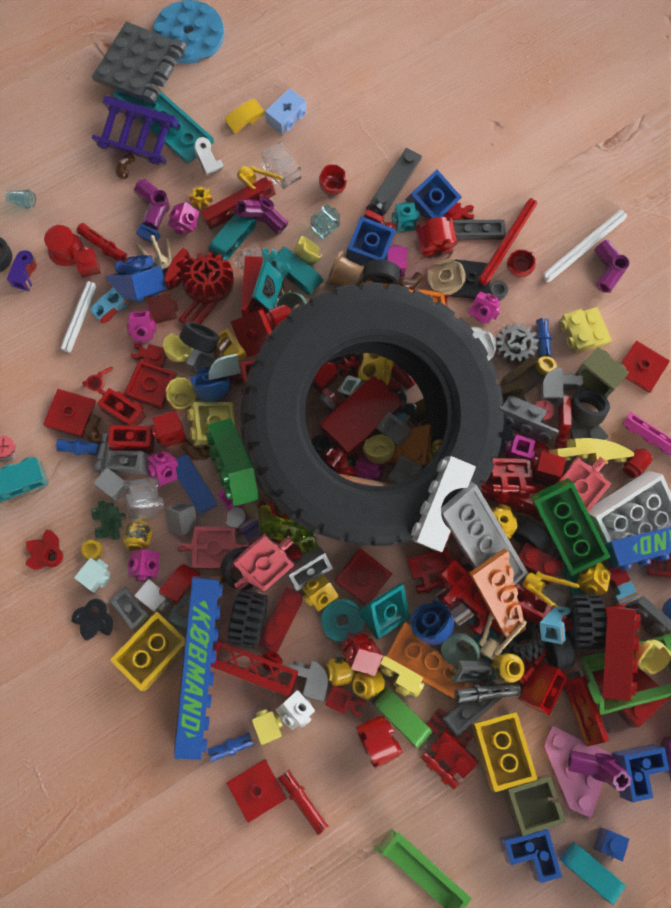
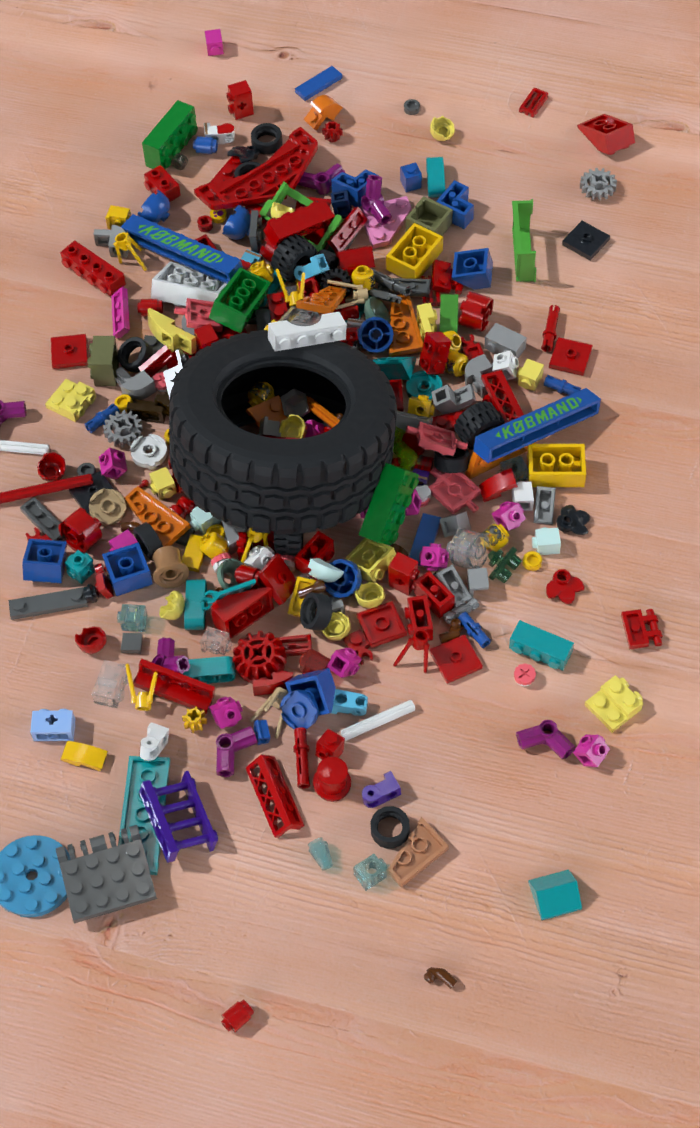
camera: 125 degrees left, 15 degrees down
(92, 205) = (277, 791): none -> red fence
(122, 165) = (213, 806): reddish brown arm -> none
(301, 628) = (450, 401): none -> light grey brick
(307, 208) = (131, 643): none -> dark grey tile
(323, 739) = (503, 339): none -> light grey brick
(436, 791) = (473, 268): none -> blue slope
(627, 735) = (341, 203): none -> dark blue brick

